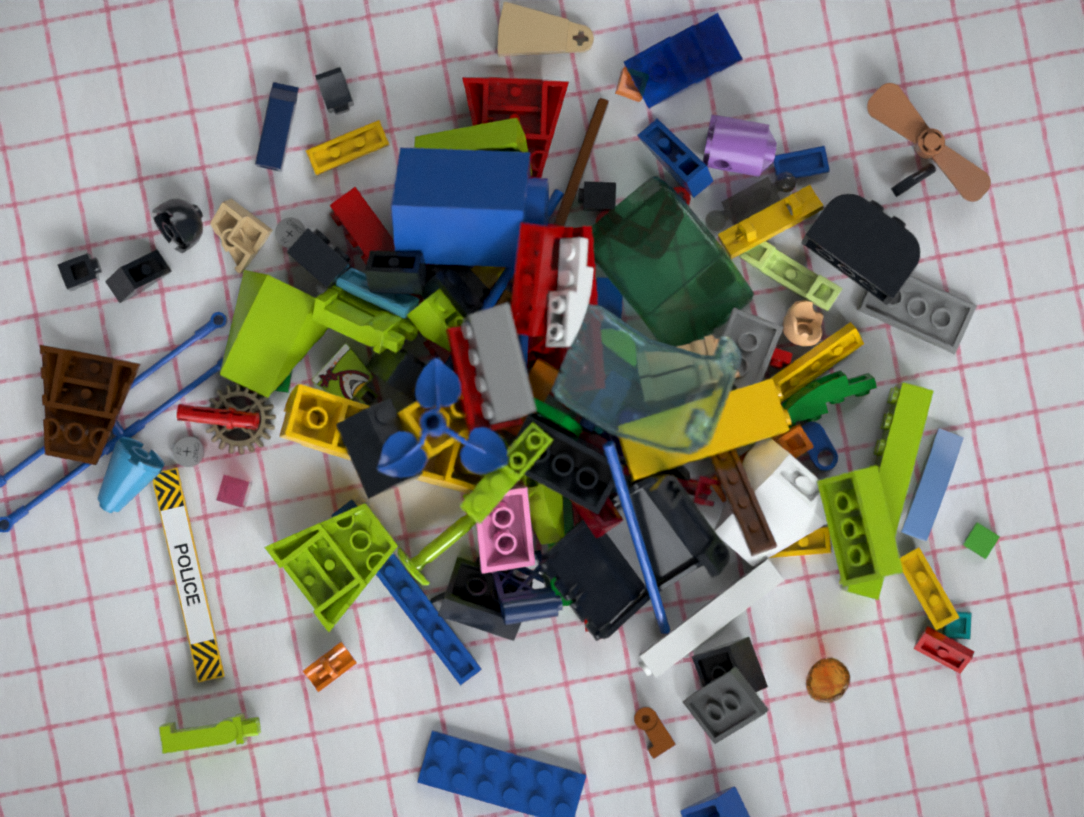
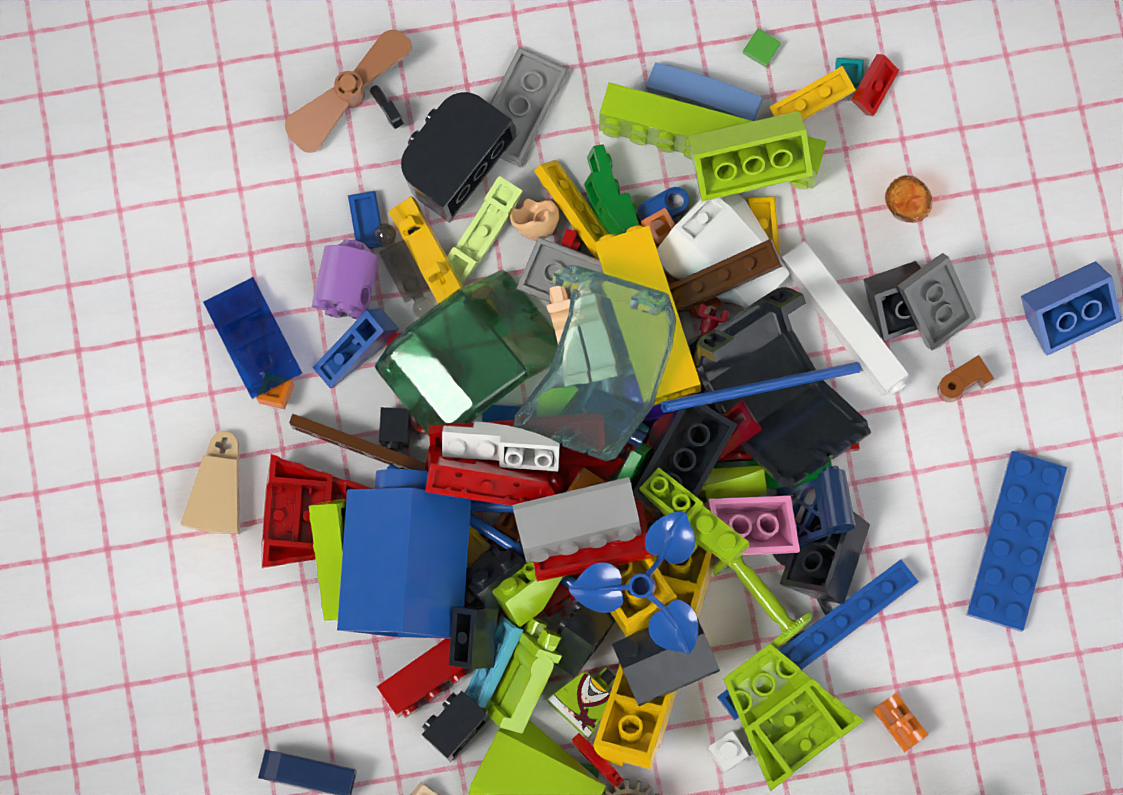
camera: 90 degrees left, 10 degrees down
(282, 395) = (596, 760): none -> red tile
(289, 231) = (424, 762): light grey piece -> none
(300, 508) = (727, 752): none -> white brick
(335, 91) = (271, 707): black slope -> none
(347, 147) = (332, 698): yellow tile -> none

